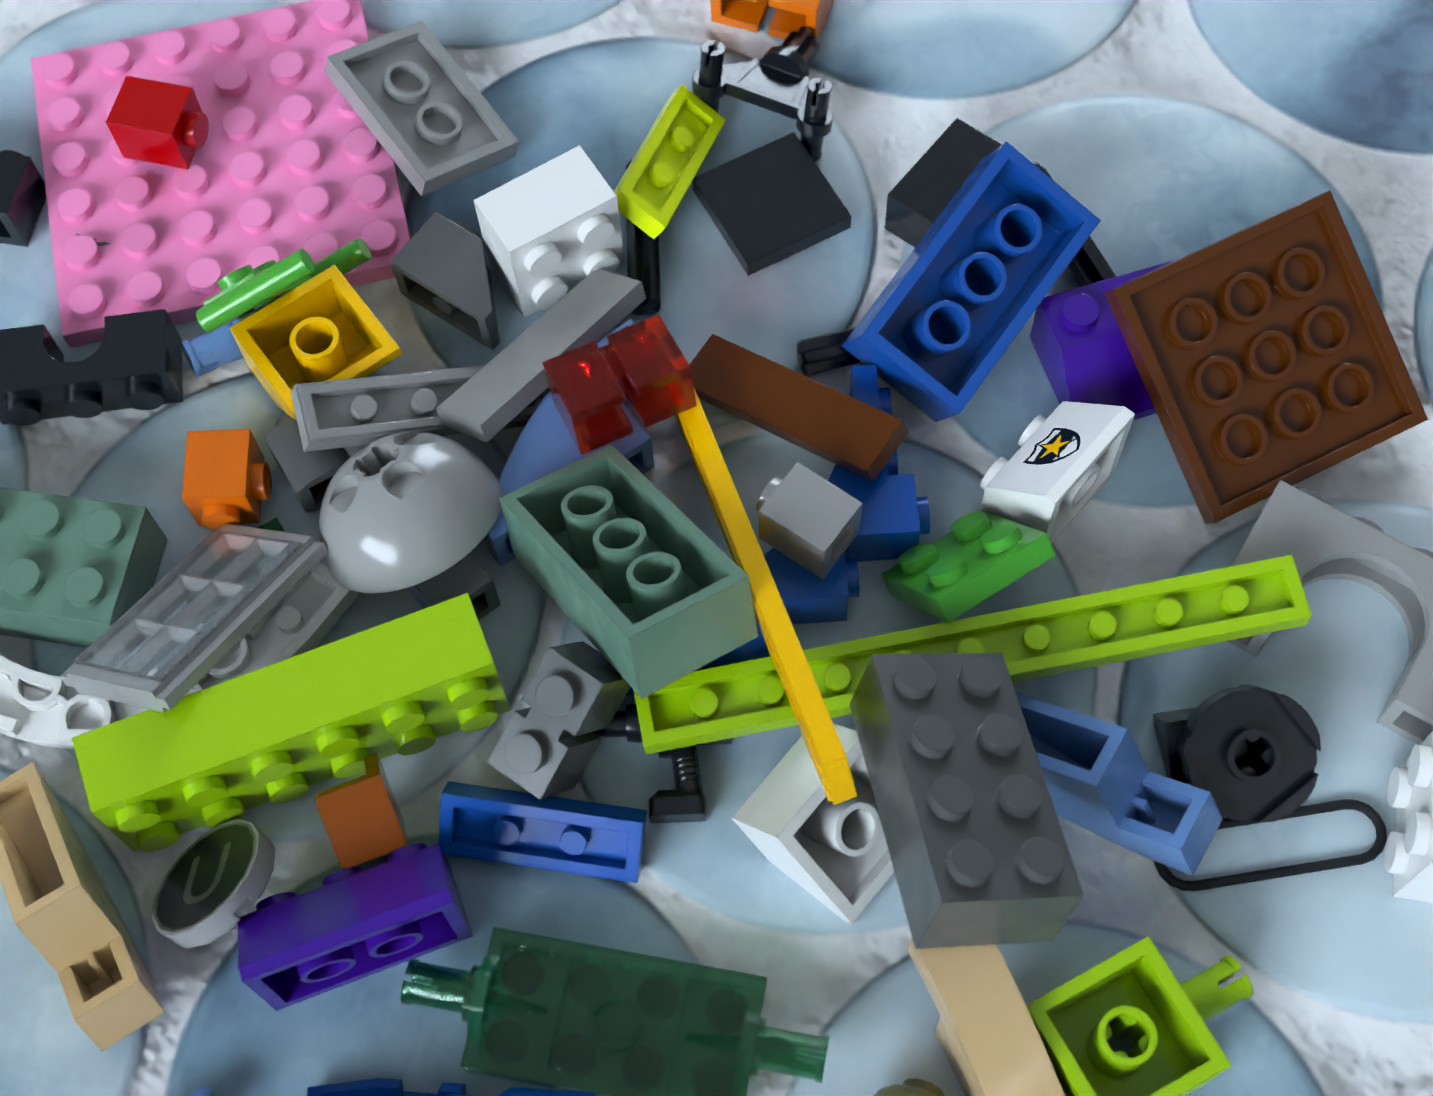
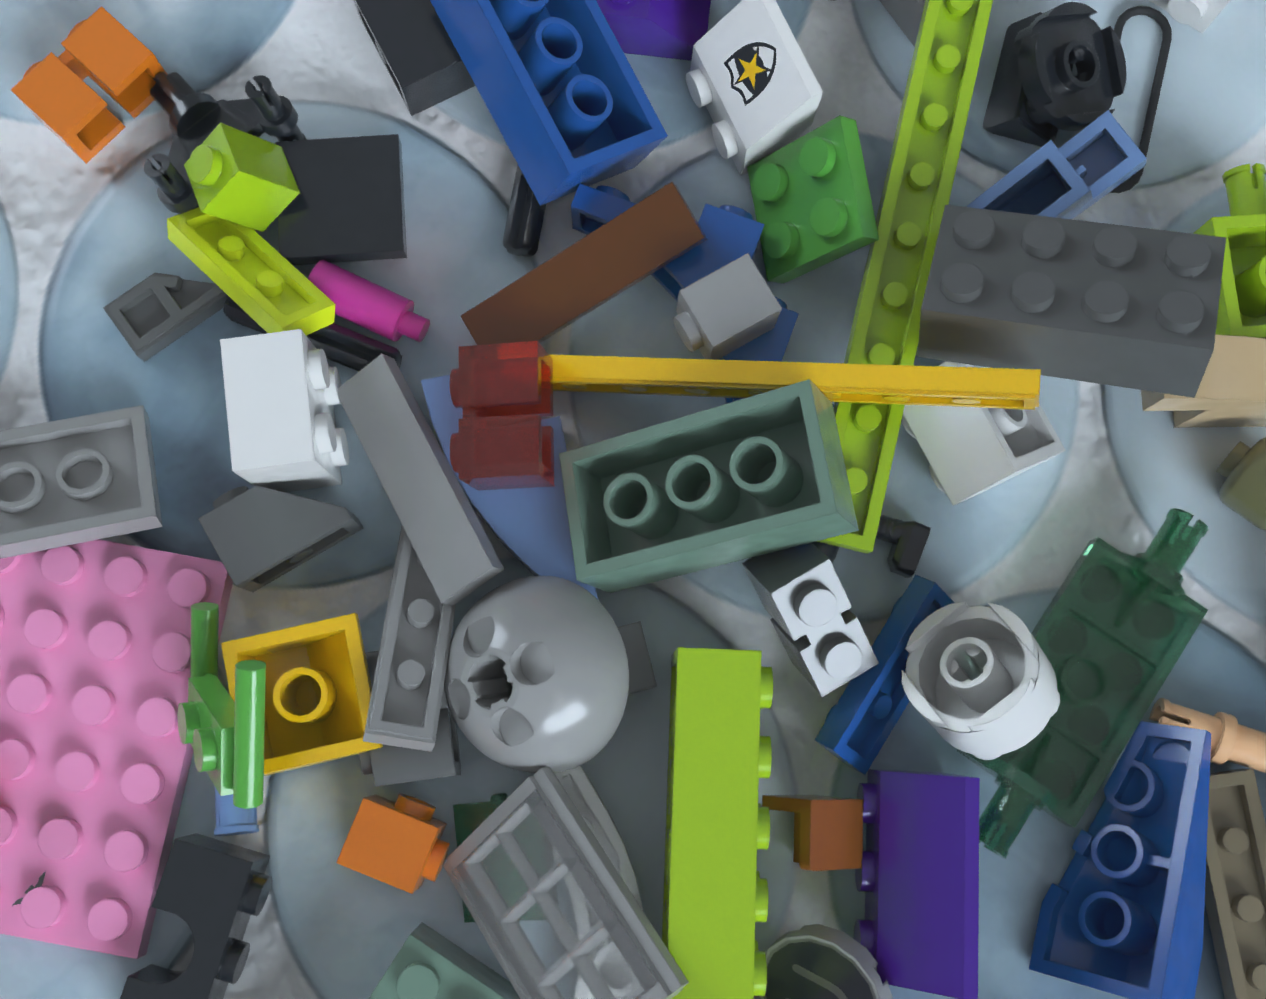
camera: 75 degrees left, 15 degrees up
(561, 896) = (980, 679): none -> white brick
(606, 122) = (163, 311): none -> dark grey tile
(688, 260) = (369, 303): none -> dark pink cylinder
(741, 115) = (241, 178): none -> lime brick

